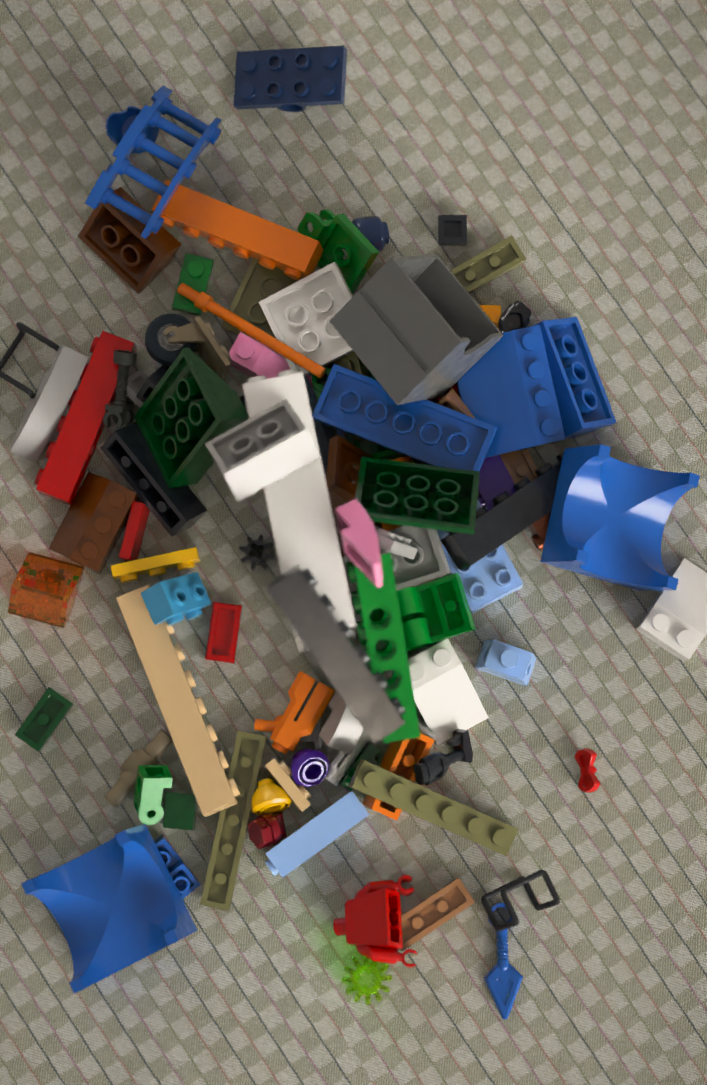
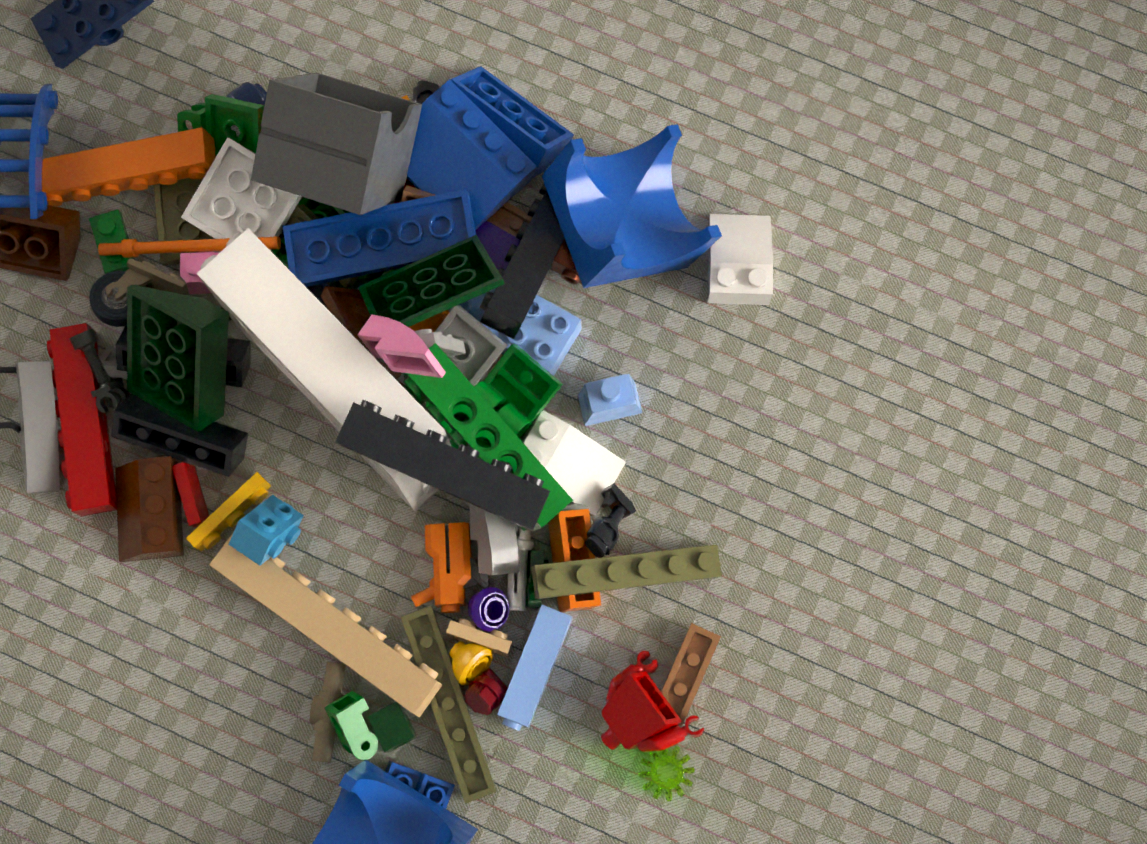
camera: 30 degrees left, 5 degrees down
(44, 719) = (209, 723): dark green plate -> none
(45, 589) = (138, 601): clear orange slope -> none
(223, 632) = (332, 536): red tile -> none
(260, 545) = (318, 435): black gear -> none
(262, 450) = (253, 319): light grey slope -> none
(452, 230) = (322, 55): black plate -> none
(489, 264) = (377, 60): olive plate -> none
(503, 978) = (791, 691): blue piece -> none
(513, 885) = (752, 588): black piece -> none
(585, 759) = (752, 461): red piece -> none

